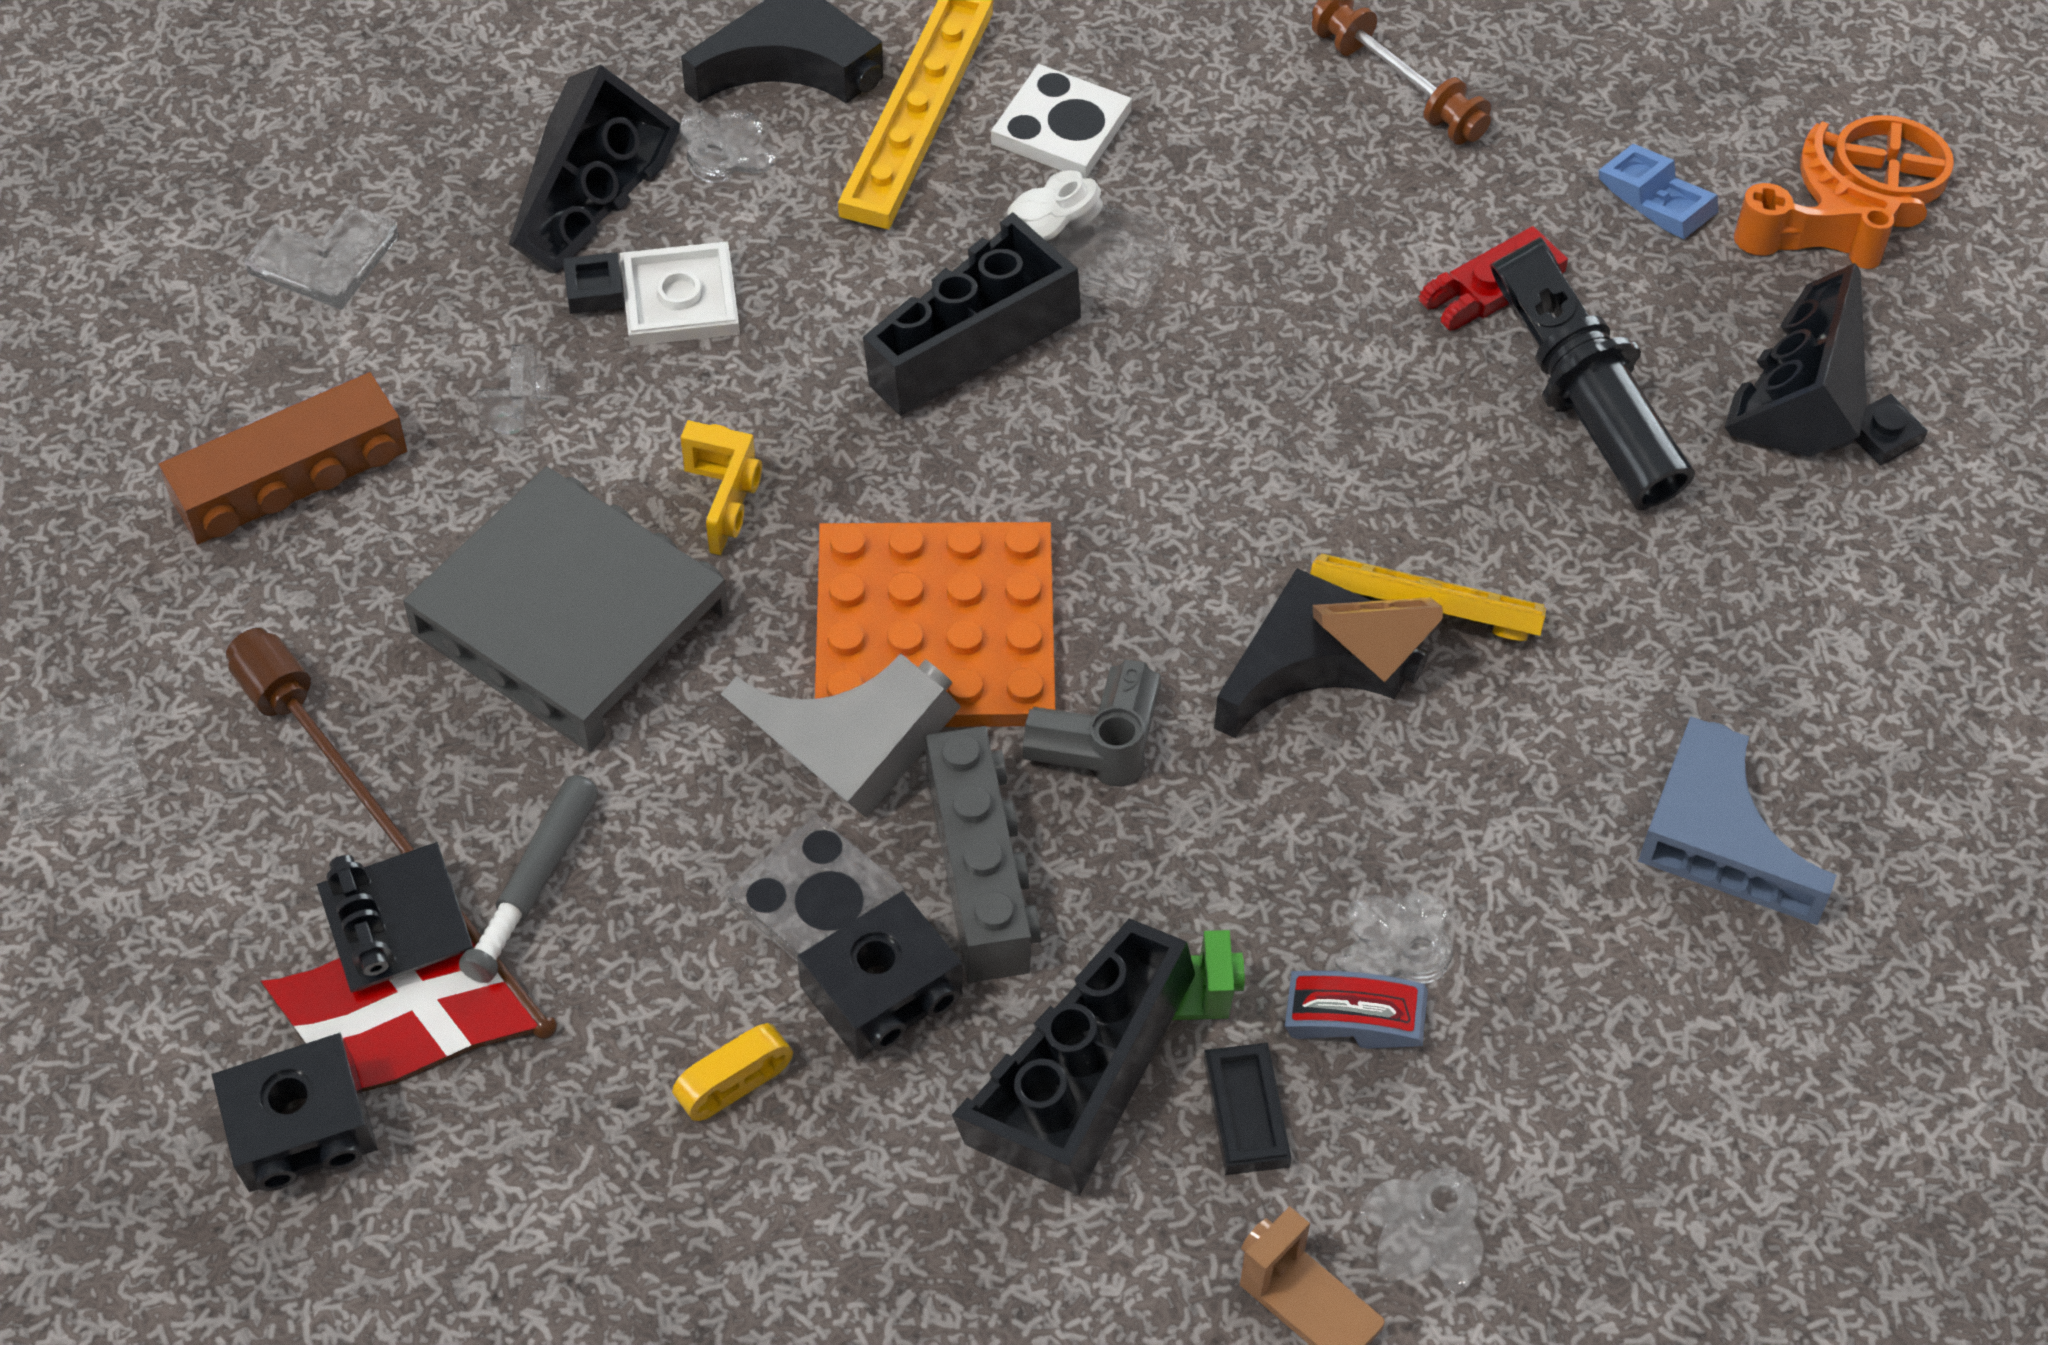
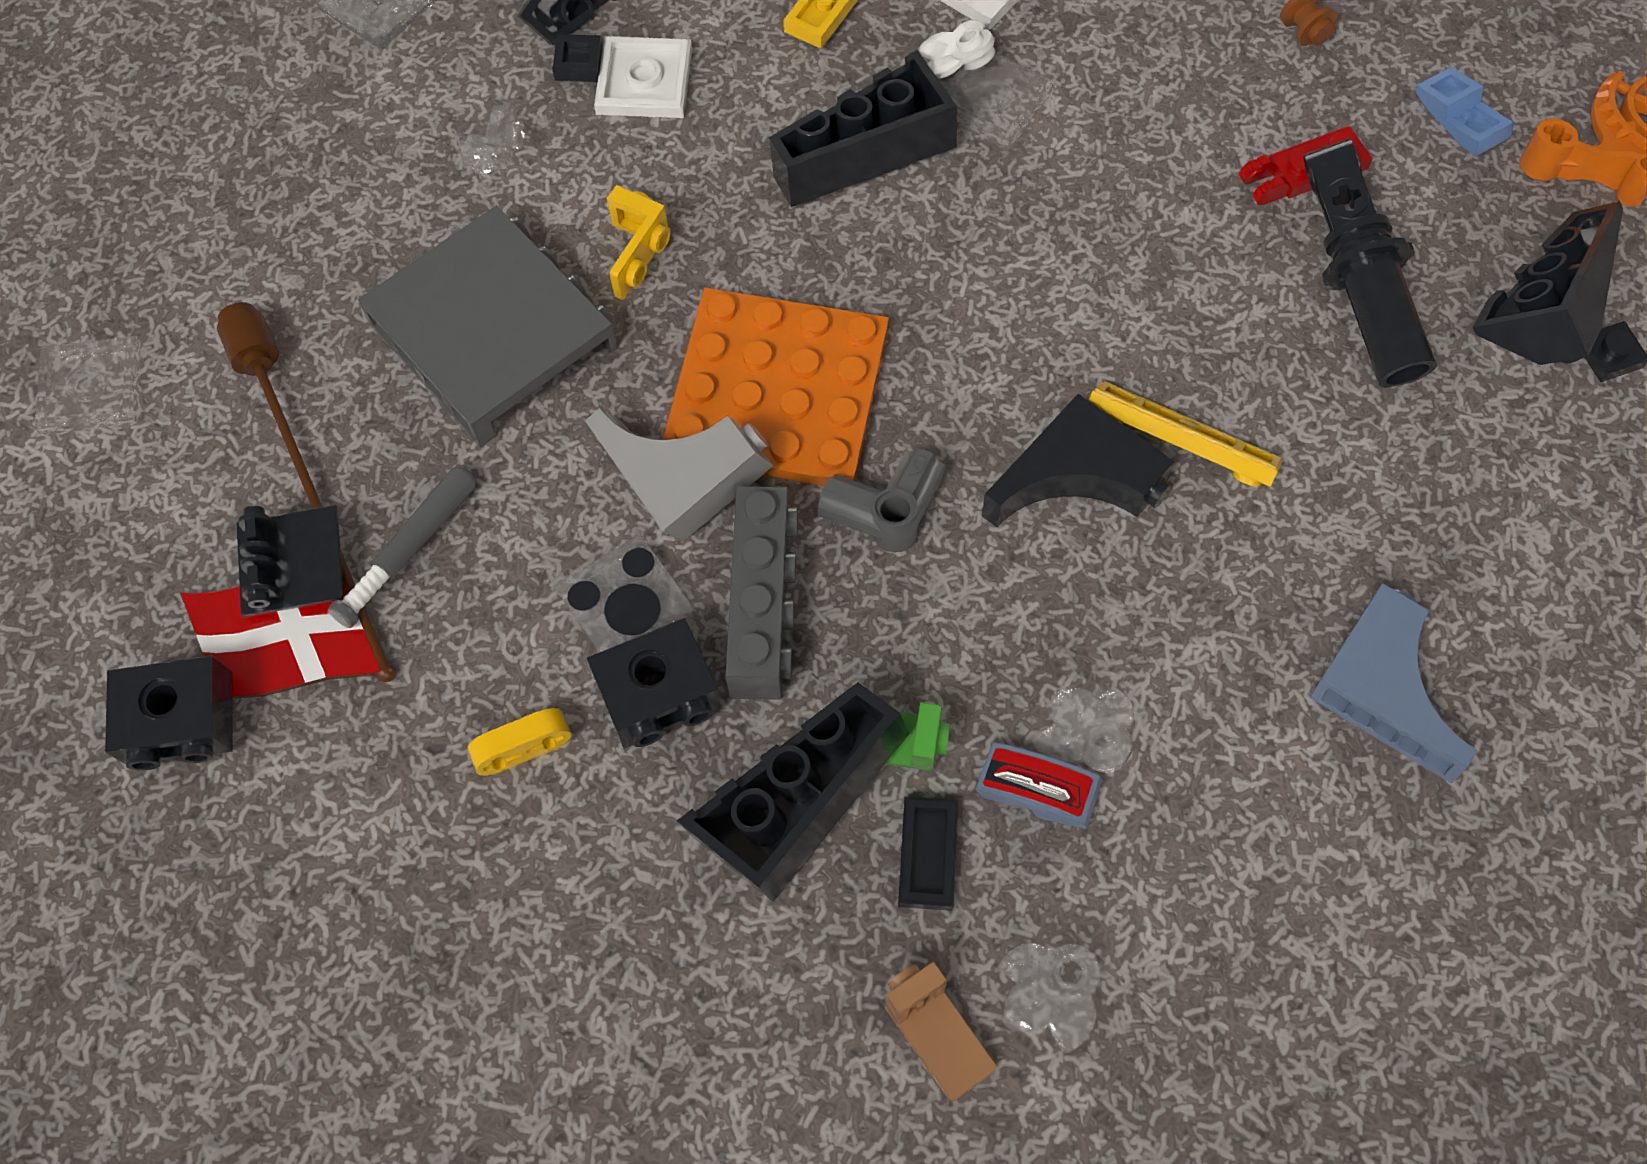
camera: 15 degrees right, 10 degrees up
(283, 458) = (302, 165): dark orange brick -> none
(1380, 631) = (1133, 461): medium nougat slope -> none

